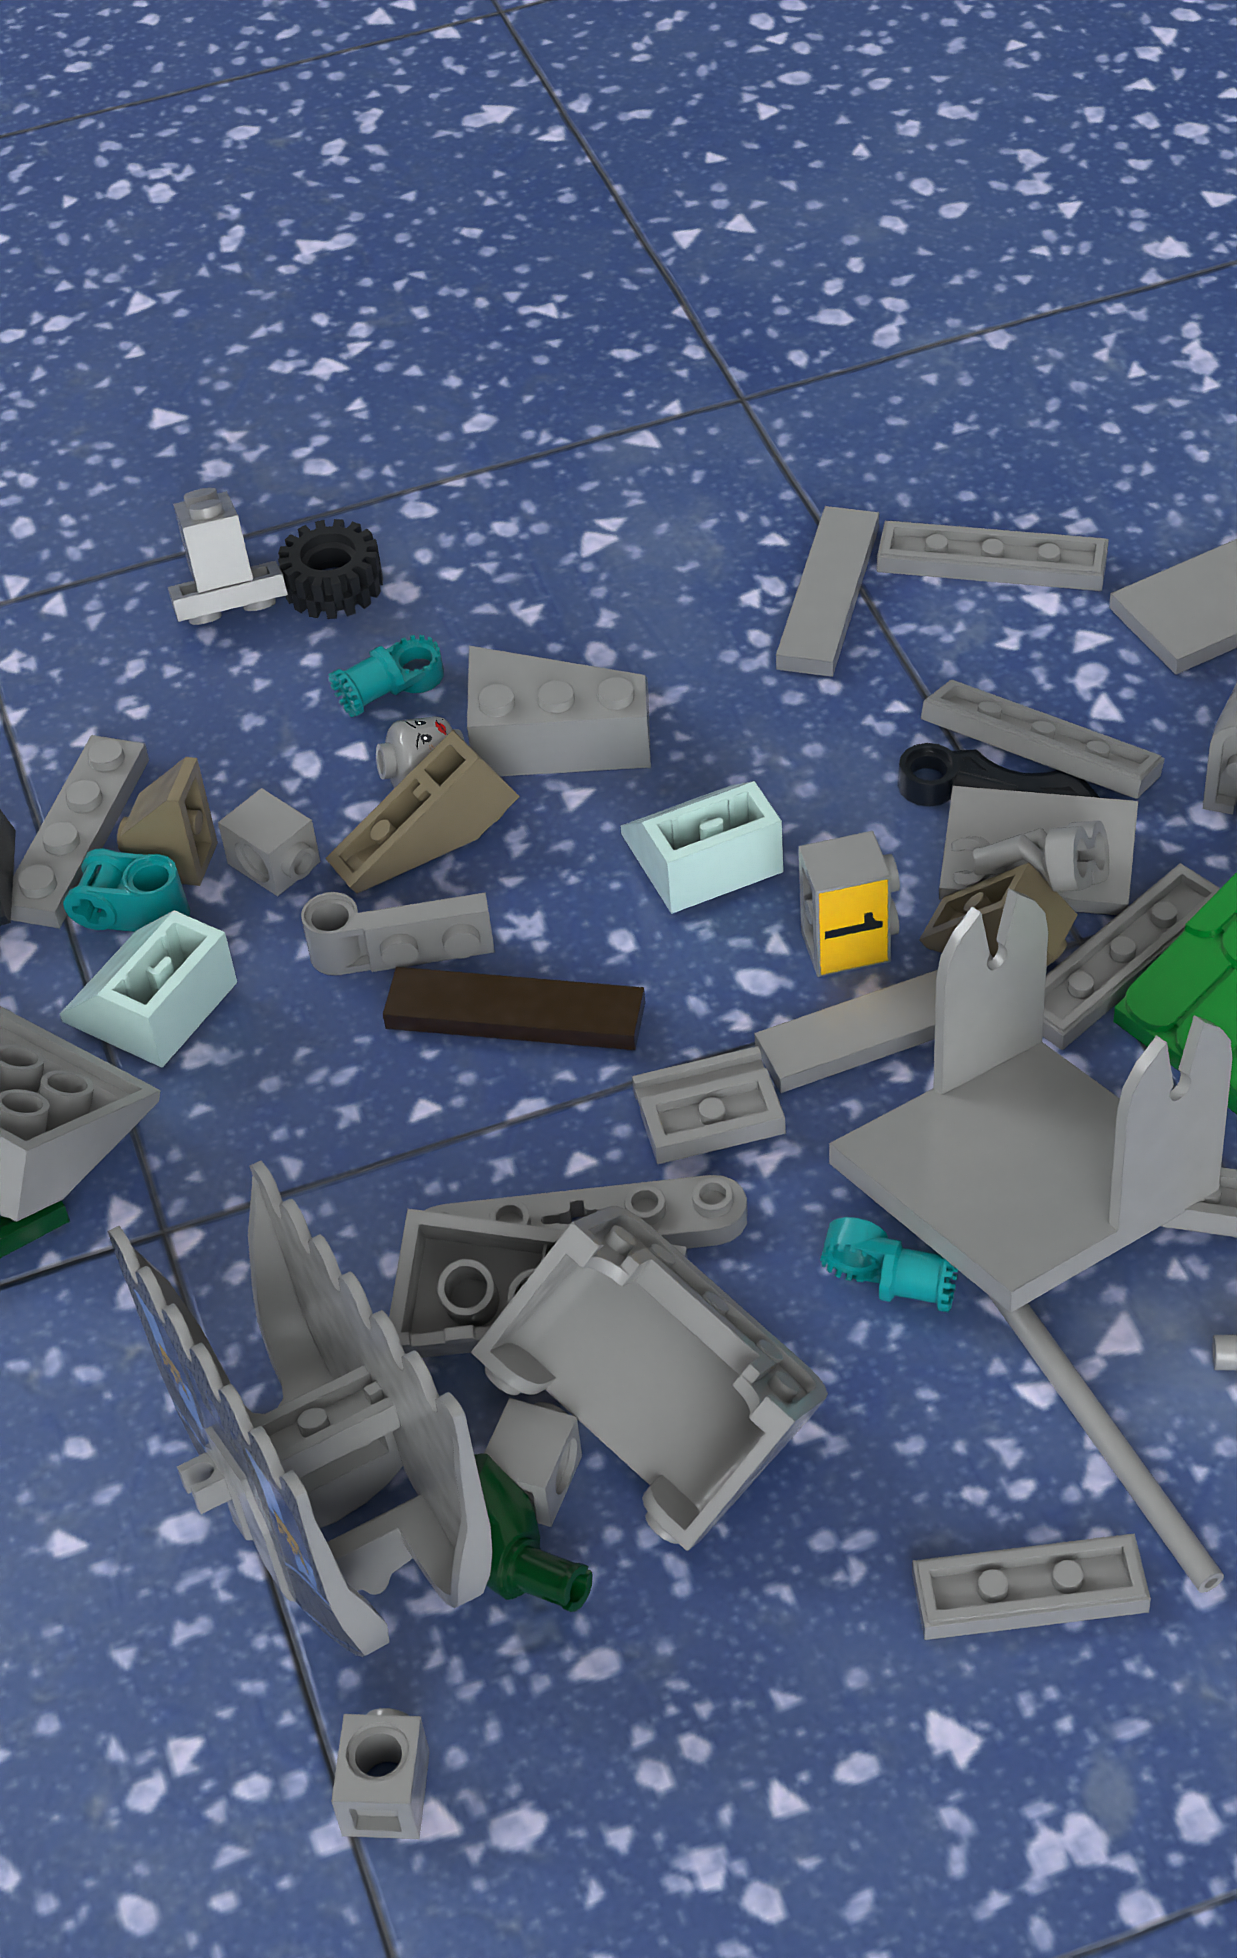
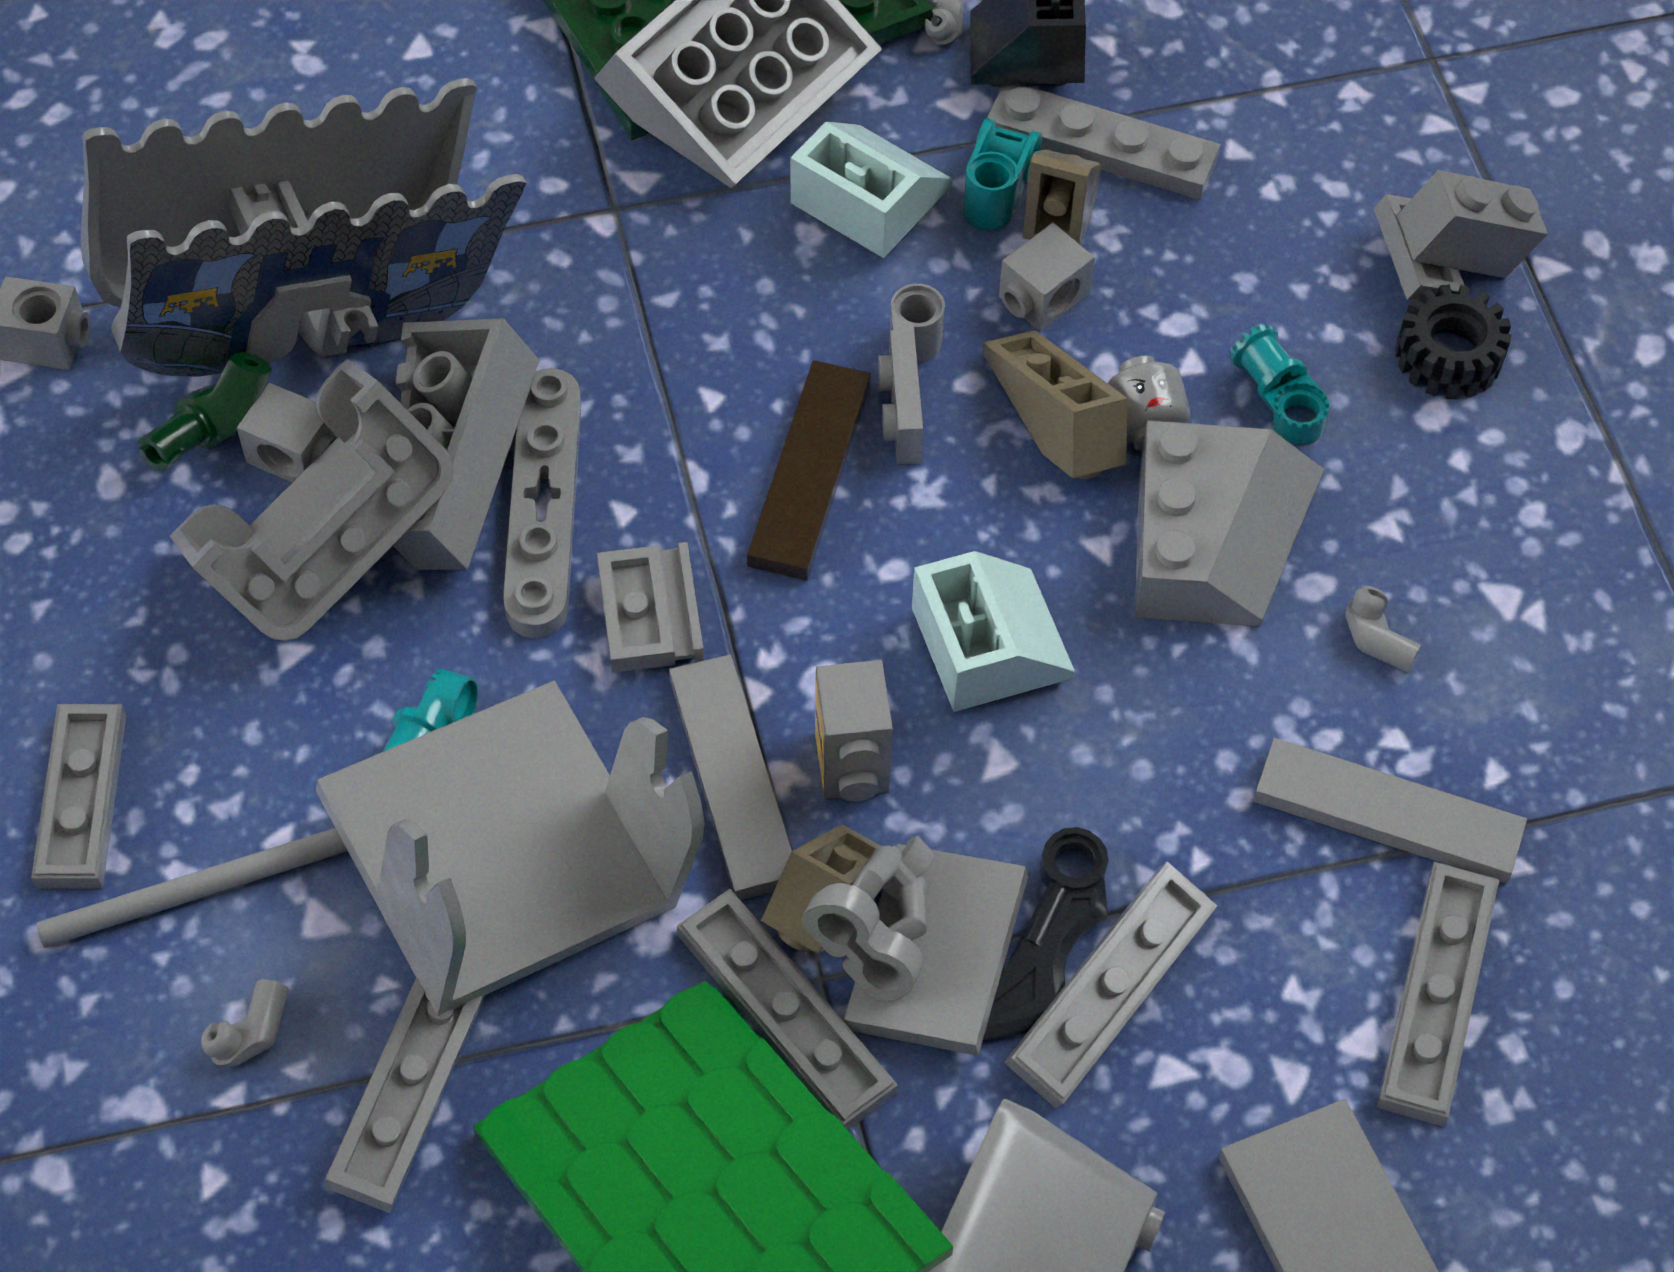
camera: 90 degrees right, 10 degrees up
(656, 607) = (1372, 632): none -> light grey arm

